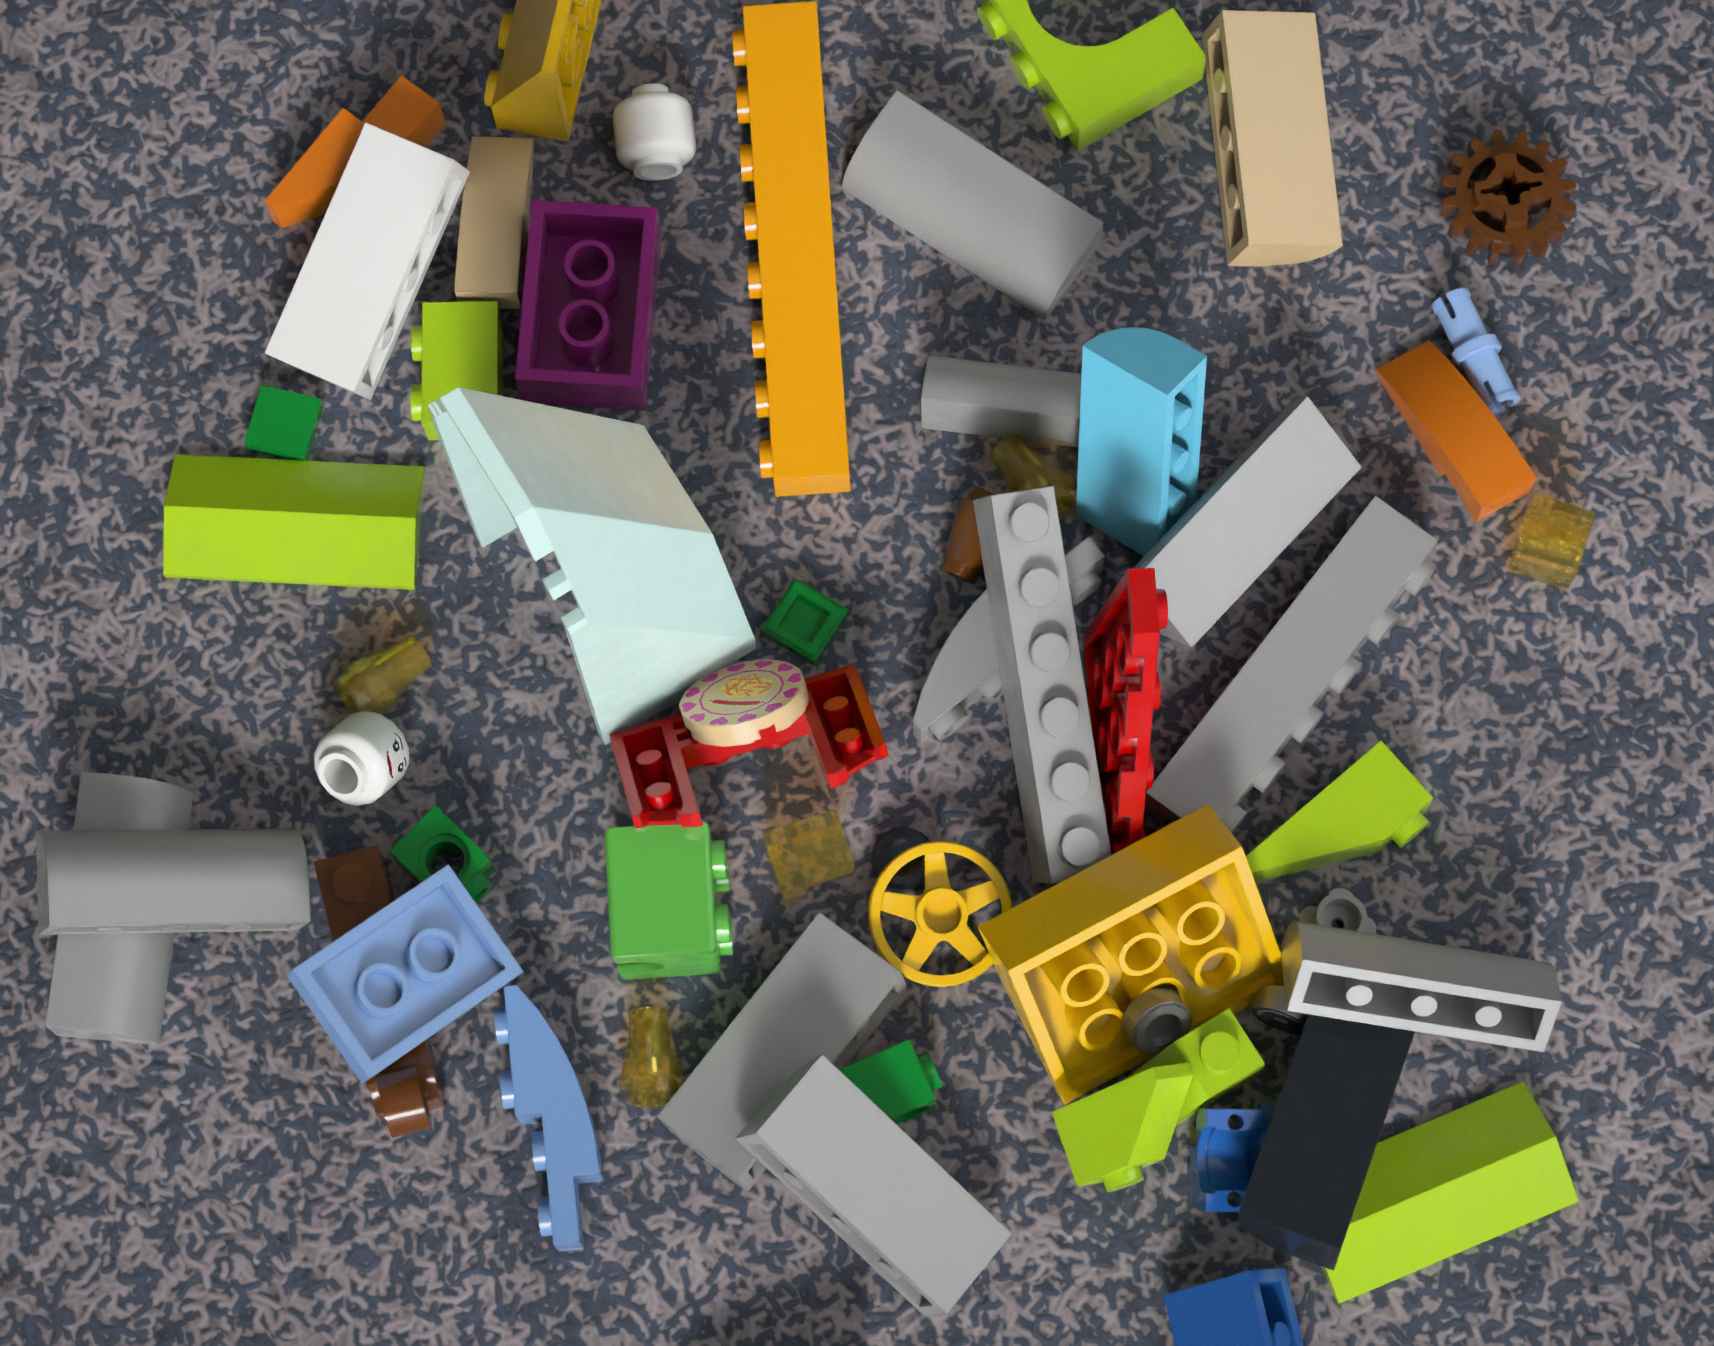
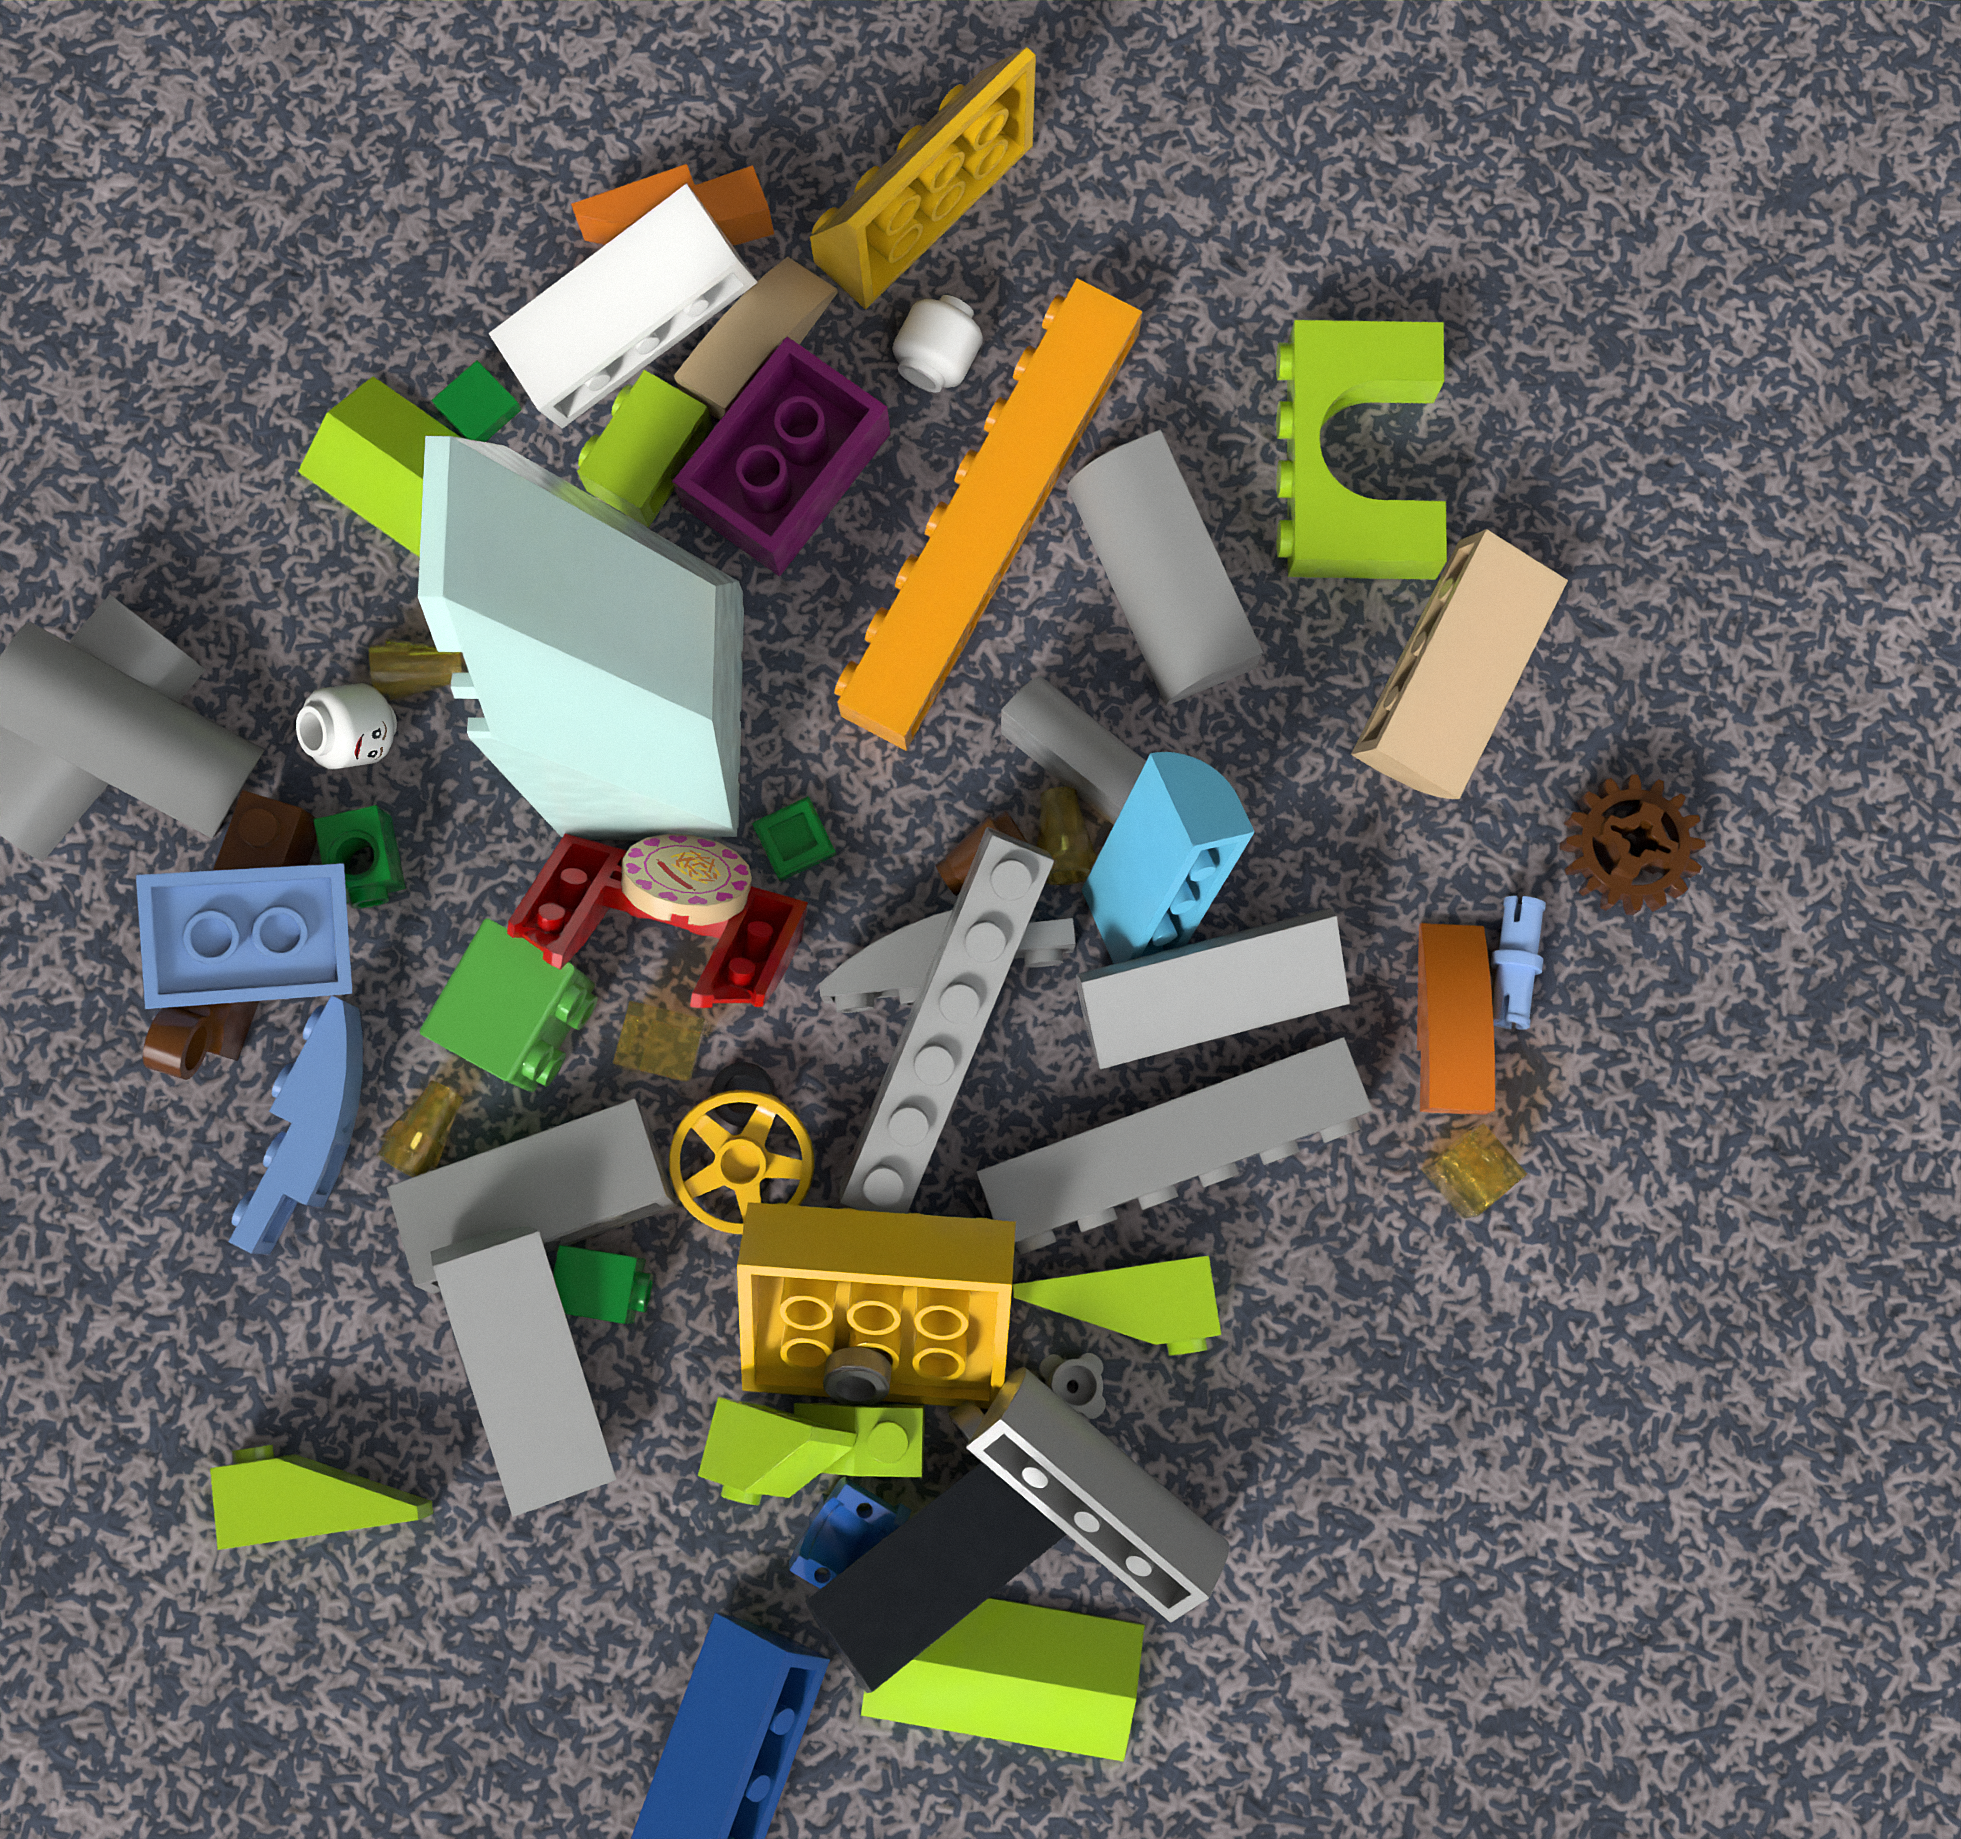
camera: 30 degrees right, 5 degrees up
(1121, 698) = (1004, 1085): red plate -> none

